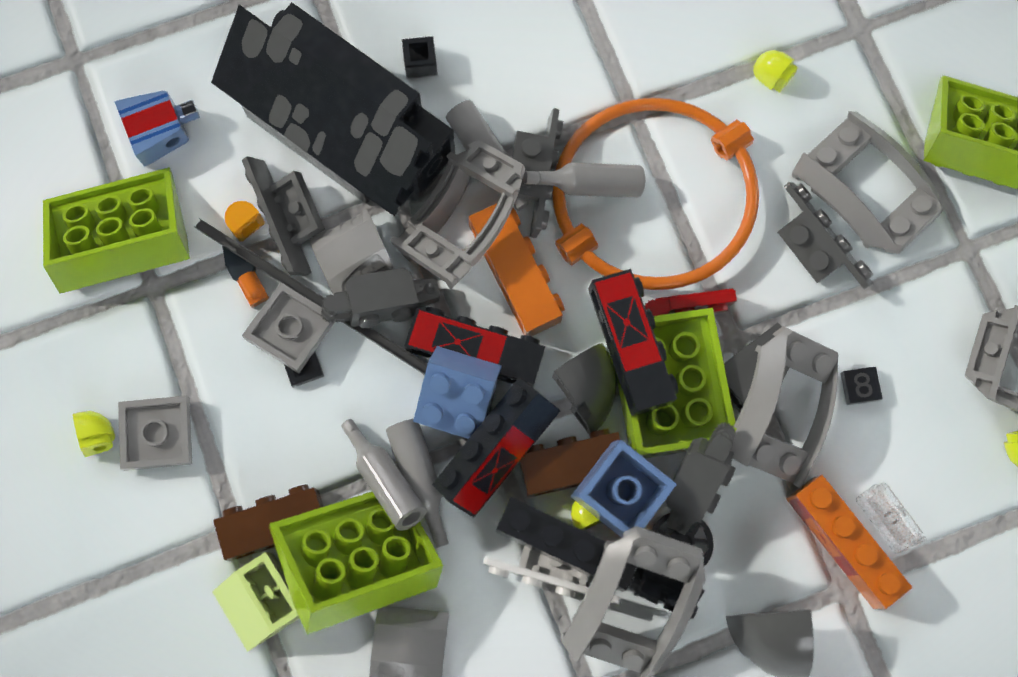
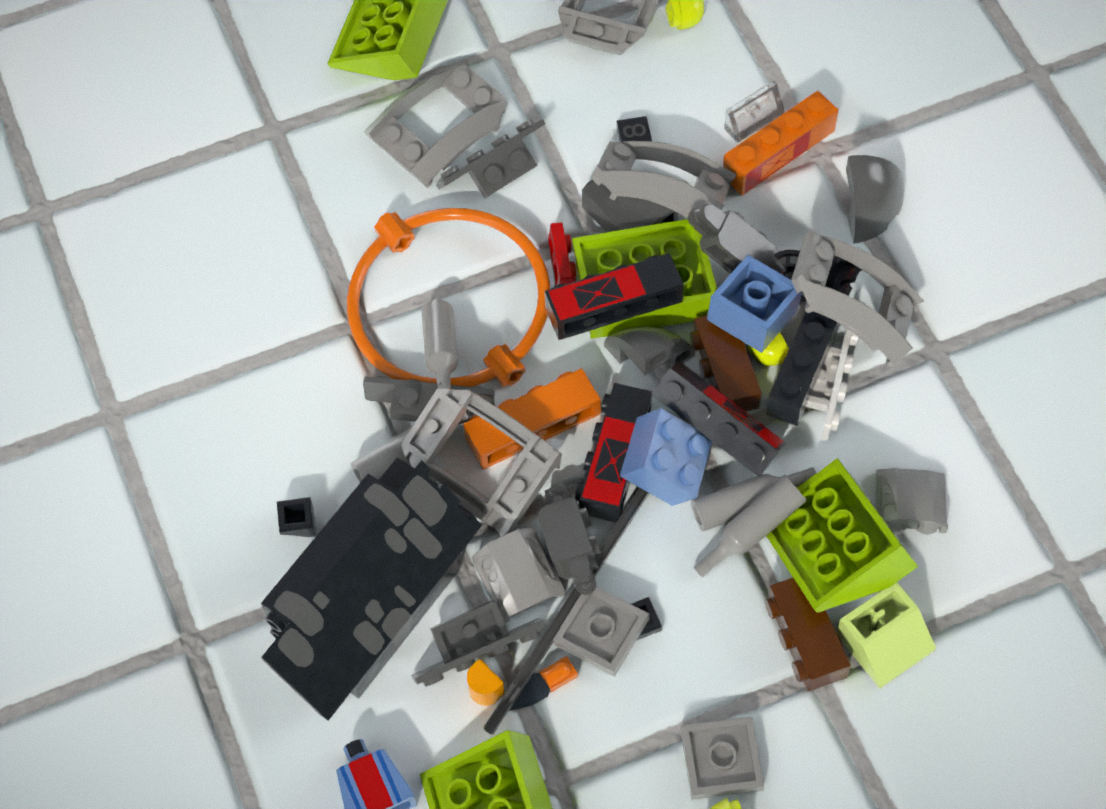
camera: 85 degrees left, 15 degrees down
(774, 69) = (319, 197): neon yellow piece -> none

